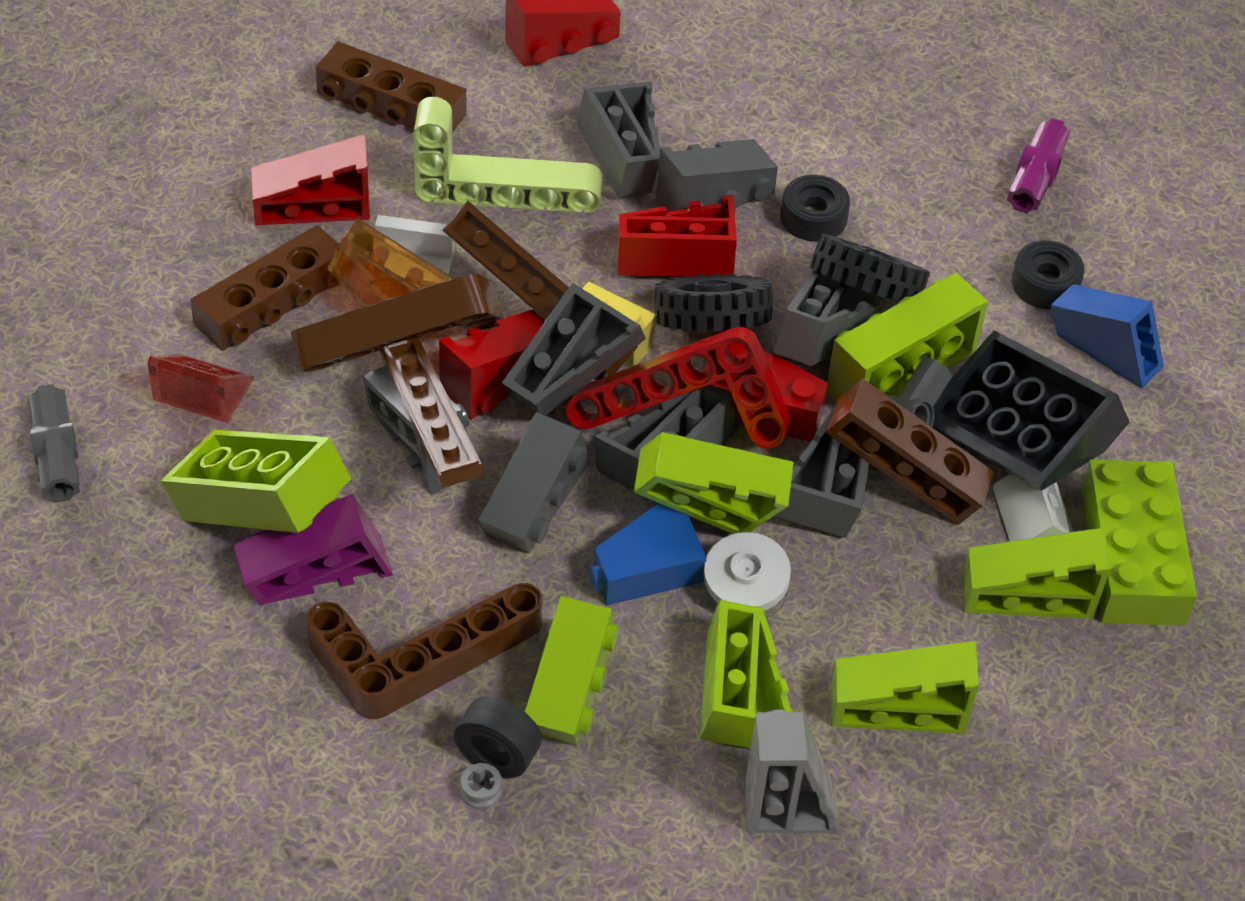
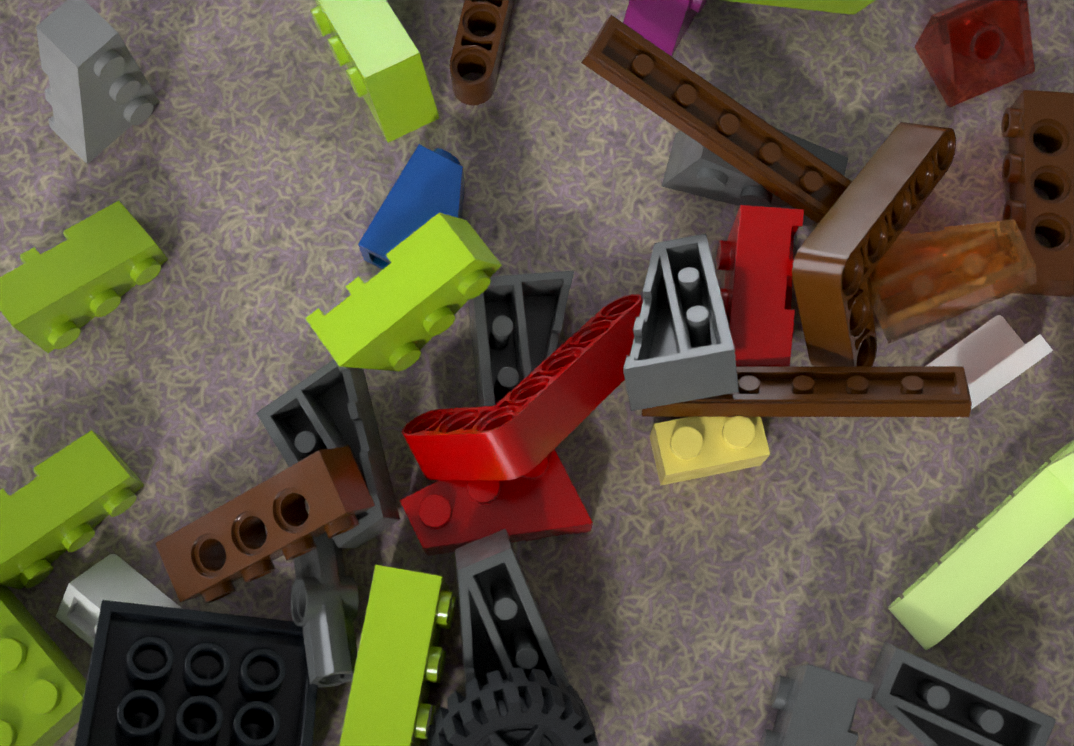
camera: 140 degrees right, 25 degrees up
(535, 483) = (586, 198): dark grey wedge -> none
(678, 241) = (750, 622): red wedge -> none
(713, 302) = (591, 556): black wheel -> none
(739, 674) = (220, 156): lime wedge -> none
(748, 571) = (311, 272): white piece -> none

